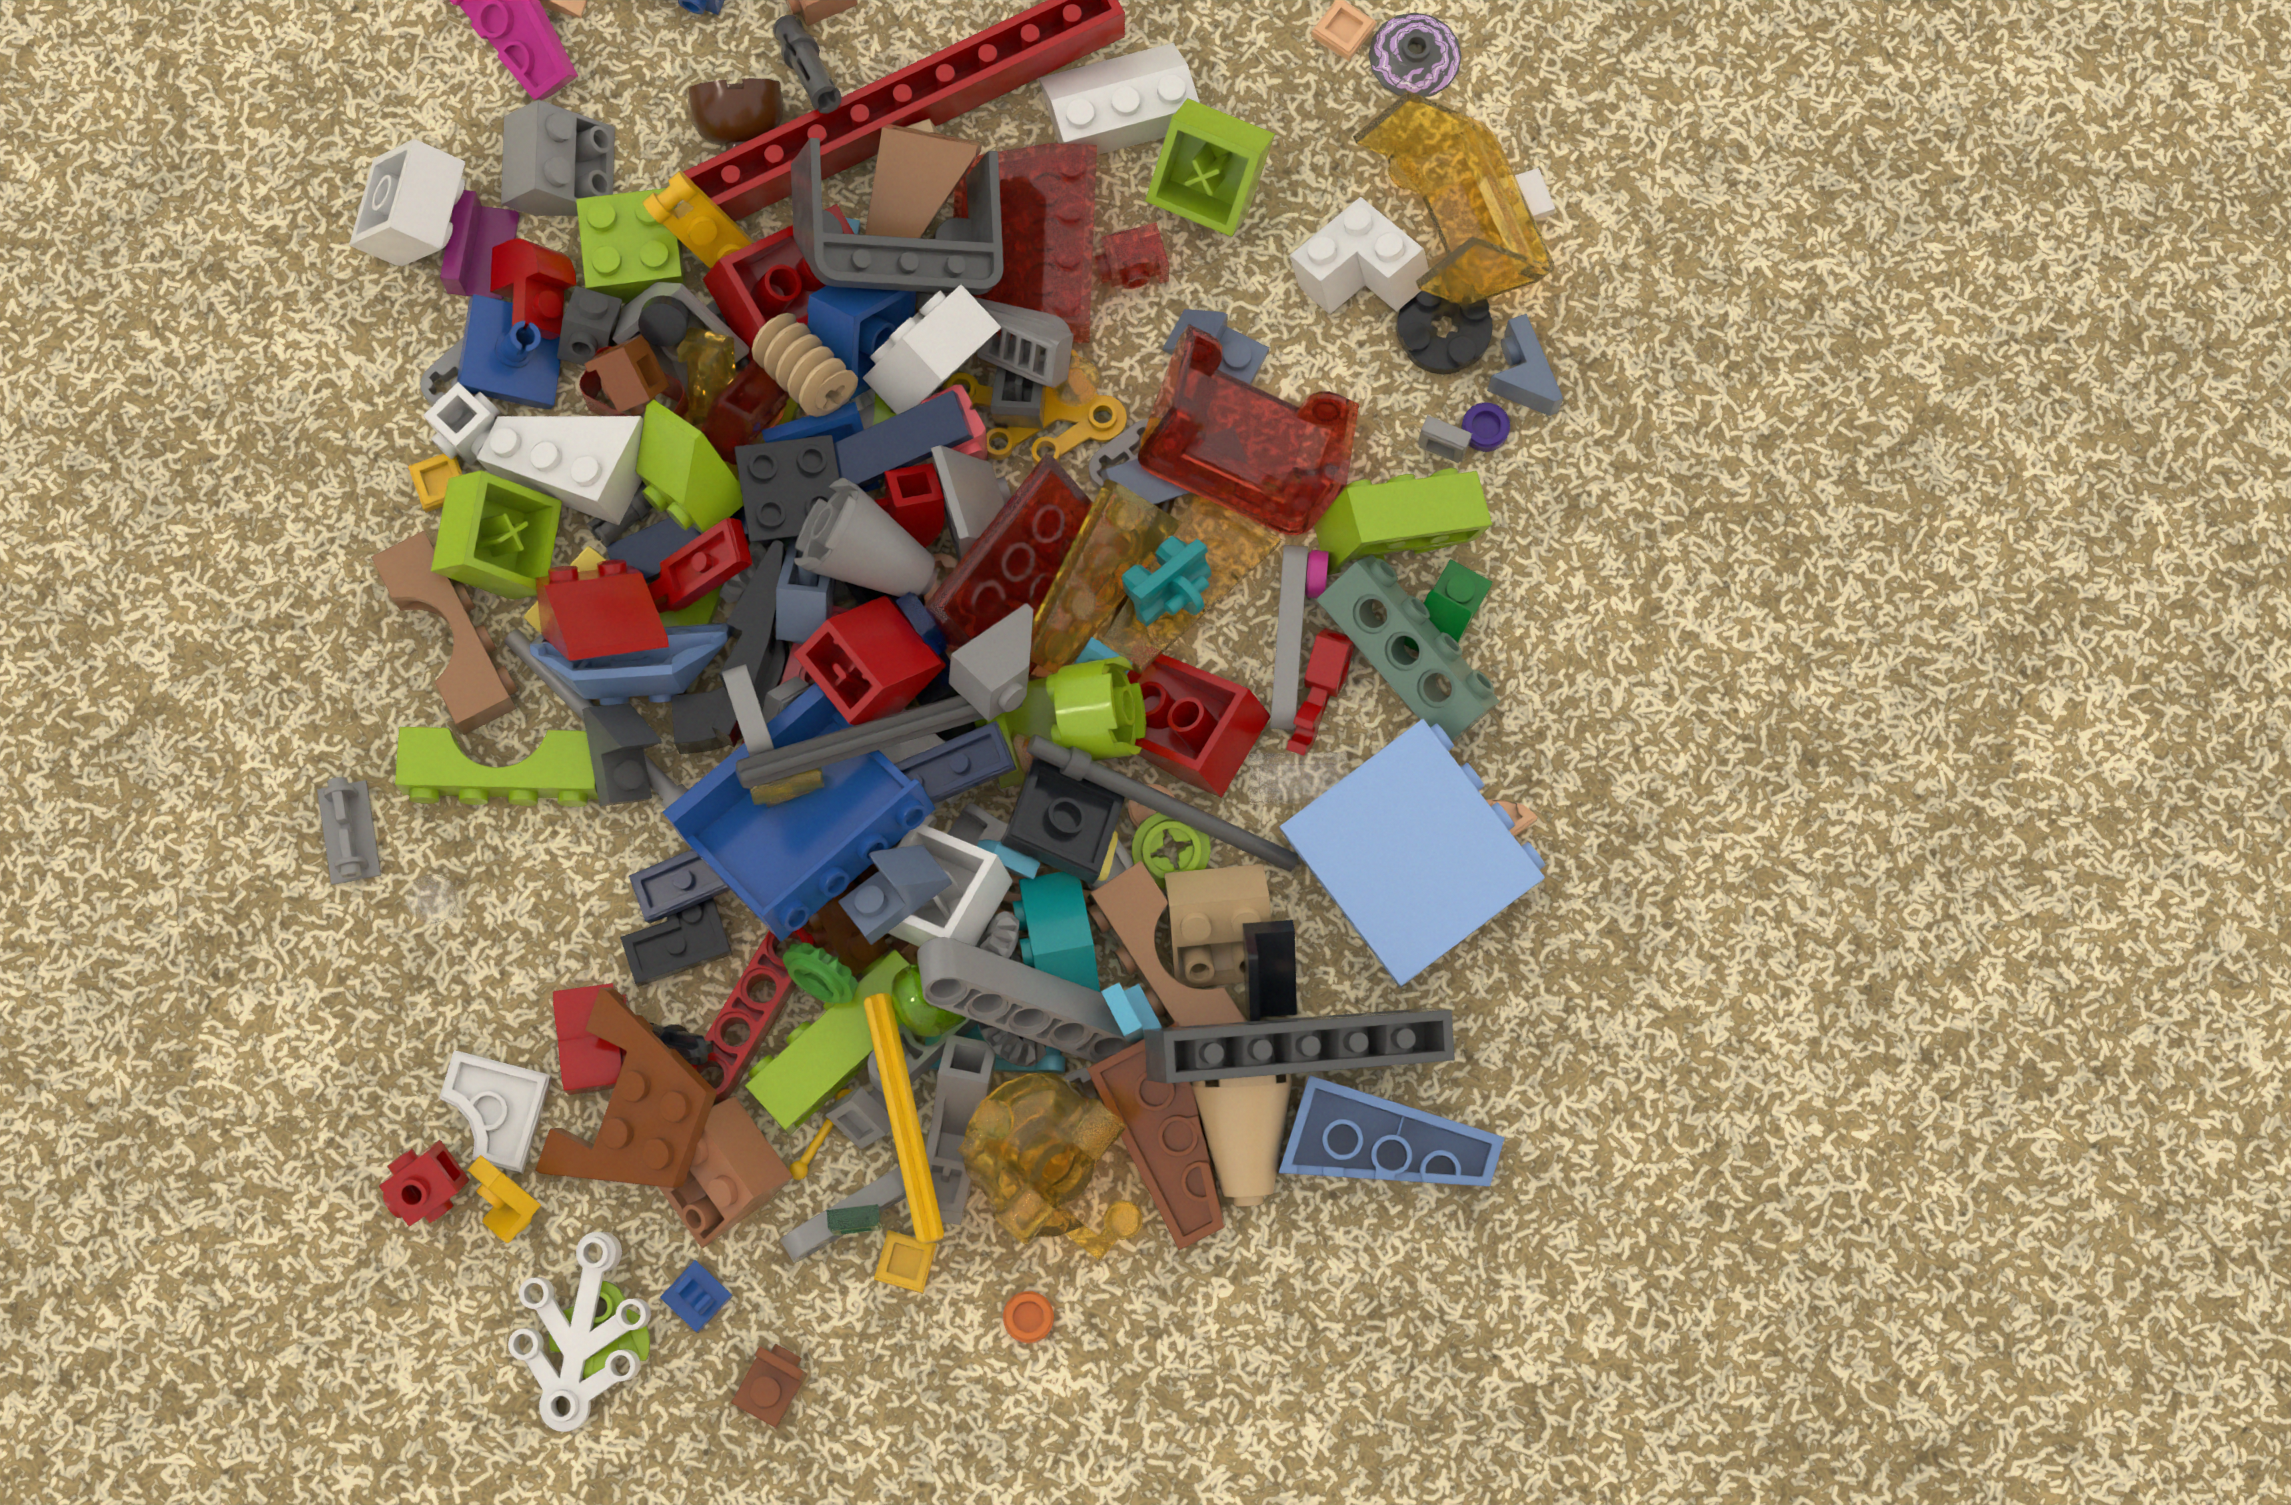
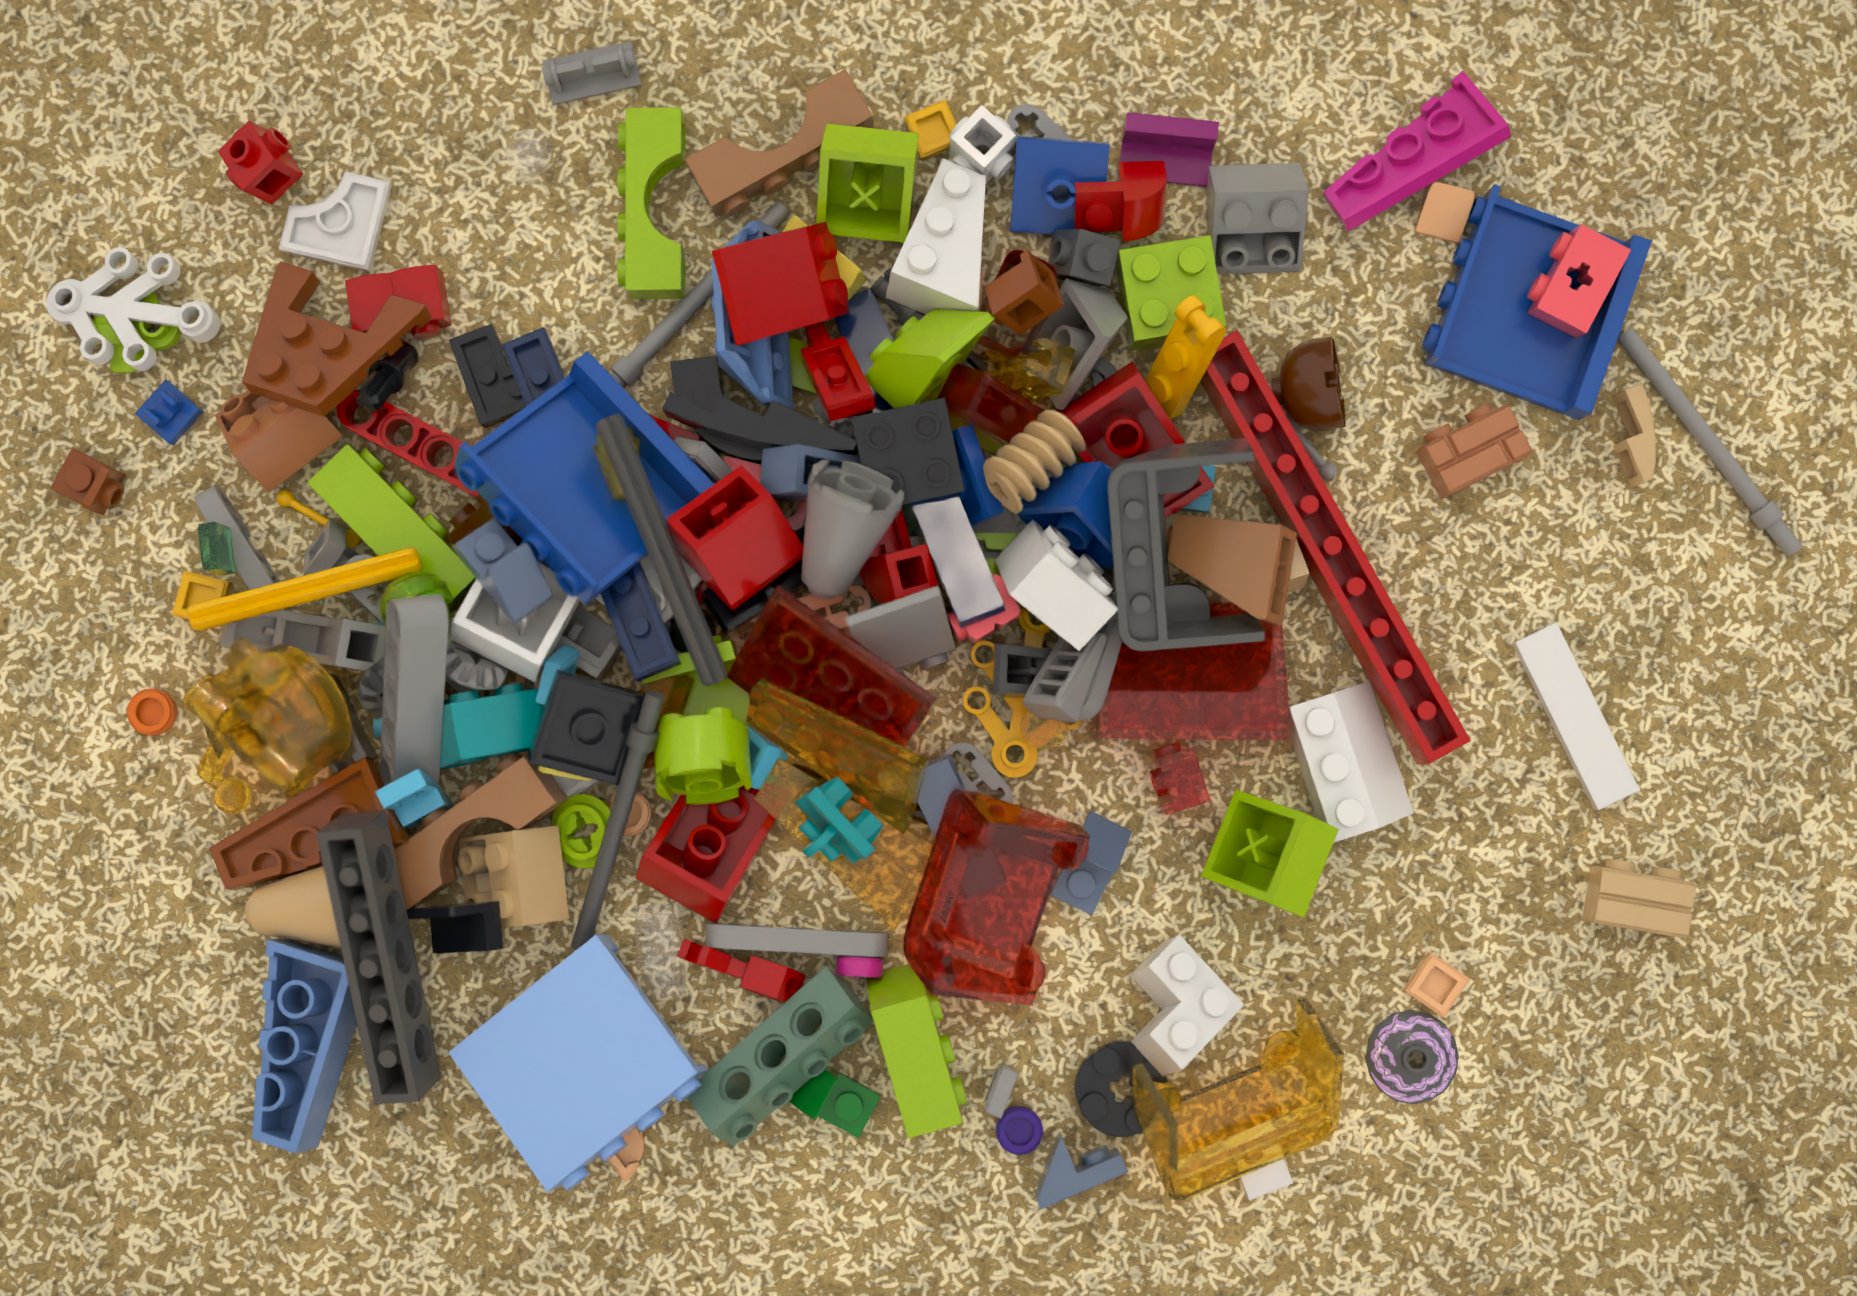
camera: 90 degrees right, 10 degrees up
(408, 203) = (1200, 77): white brick -> none
(511, 1203) = (250, 234): yellow bracket -> none
(617, 752) = (661, 310): dark grey slope -> none
(663, 321) = (1075, 323): black tile -> none
(747, 710) = (676, 424): light grey beam -> none
(802, 54) = (1377, 445): dark grey pin -> none
(820, 973) = (440, 507): bright green gear -> none
(922, 622) = (786, 577): clear blue tile -> none
(995, 665) = (730, 659): light grey slope -> none

